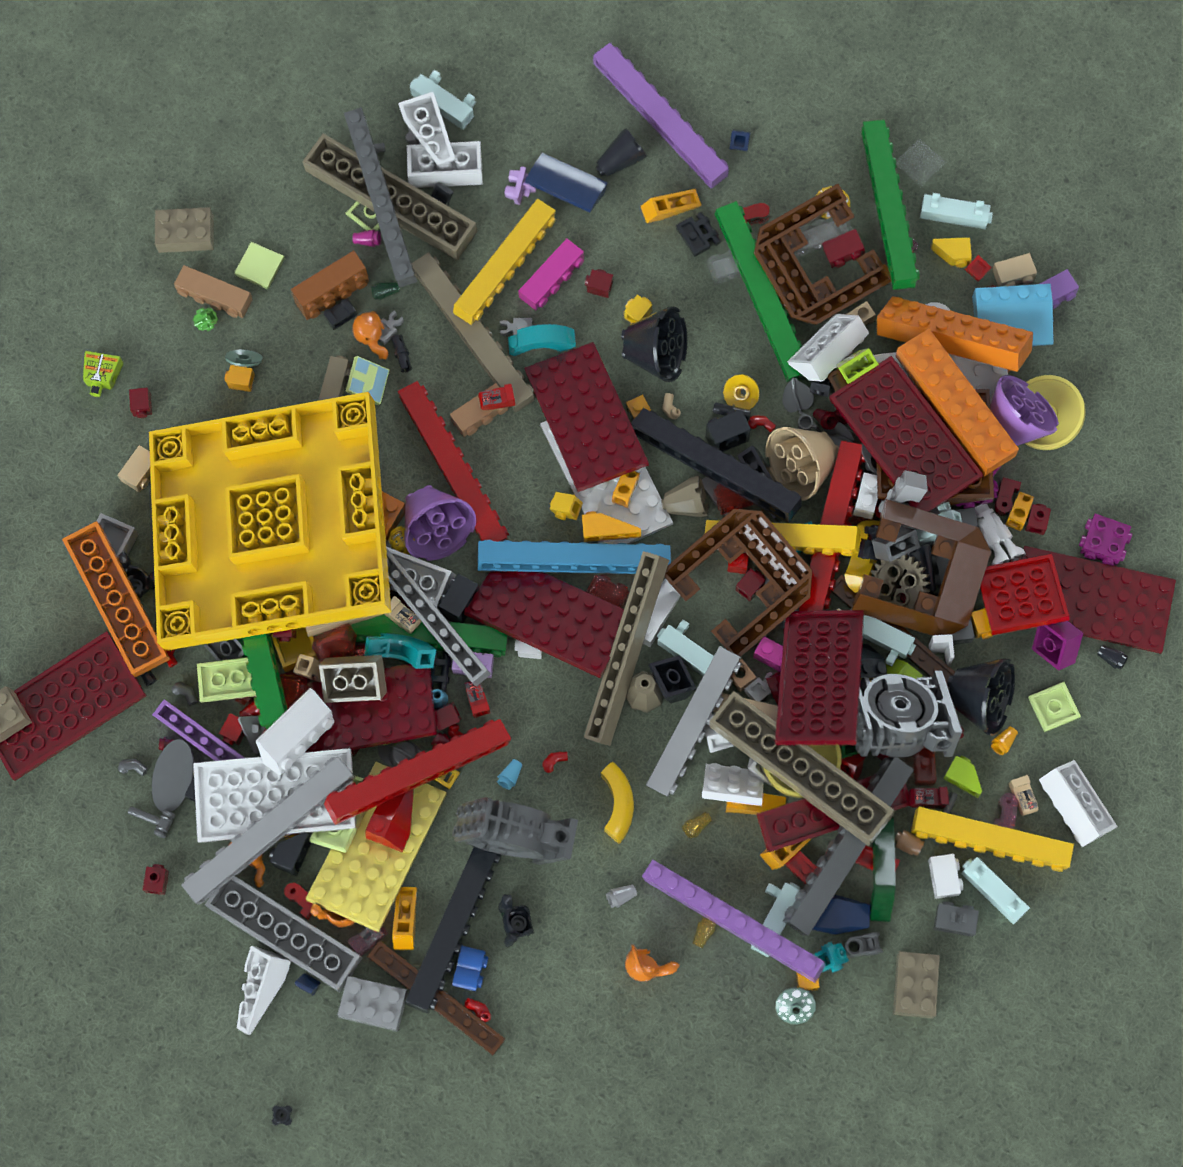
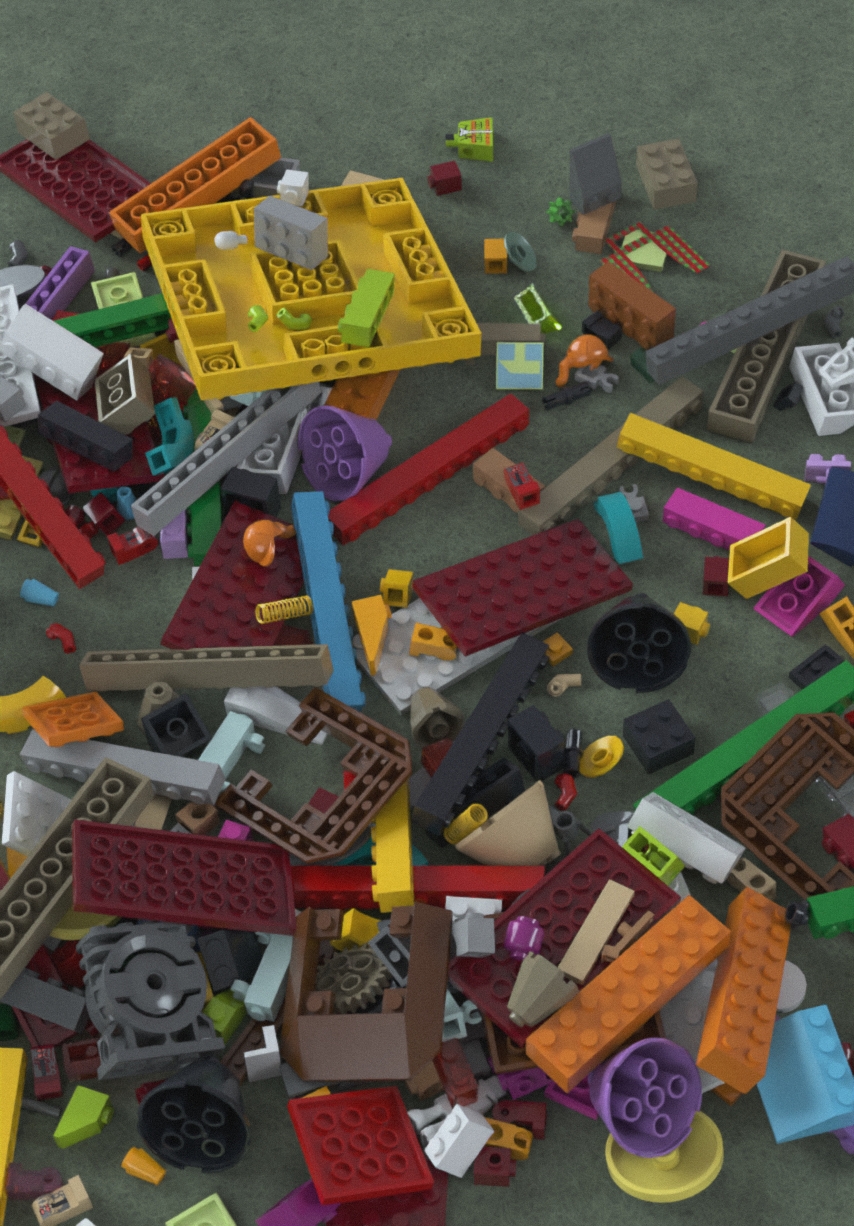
camera: 80 degrees right, 20 degrees down
(155, 515) = (294, 187): none -> white brick
(200, 280) = (594, 175): none -> dark grey slope
(212, 572) = (229, 240): none -> white cylinder
(228, 518) = (290, 232): none -> light grey piece
(261, 243) = (665, 238): none -> piece
(308, 357) = (537, 309): none -> clear neon green brick
(318, 533) = (302, 323): none -> lime arm
(319, 553) = (259, 318): none -> lime arm
(329, 469) = (367, 308): none -> lime brick
(388, 713) = (85, 436): none -> black brick
(519, 589) = (259, 540): none -> orange piece
(585, 597) = (266, 613): none -> yellow piece
(605, 241) = (768, 558): none -> yellow piece
(628, 232) = (800, 598): none -> dark pink slope
(645, 753) = (73, 719): none -> orange plate
(732, 351) = (658, 736): none -> black brick
(800, 479) = (465, 822): none -> yellow piece
(902, 290) = (797, 914): none -> black plate
(911, 412) = (596, 931): none -> tan tile
(913, 457) = (523, 936): none -> magenta head
(919, 391) = (629, 934): none -> medium nougat piece
(957, 454) = (538, 991): none -> dark tan cone
(989, 524) = (456, 1074): none -> clear red brick
(1026, 533) = (459, 1140): none -> white brick

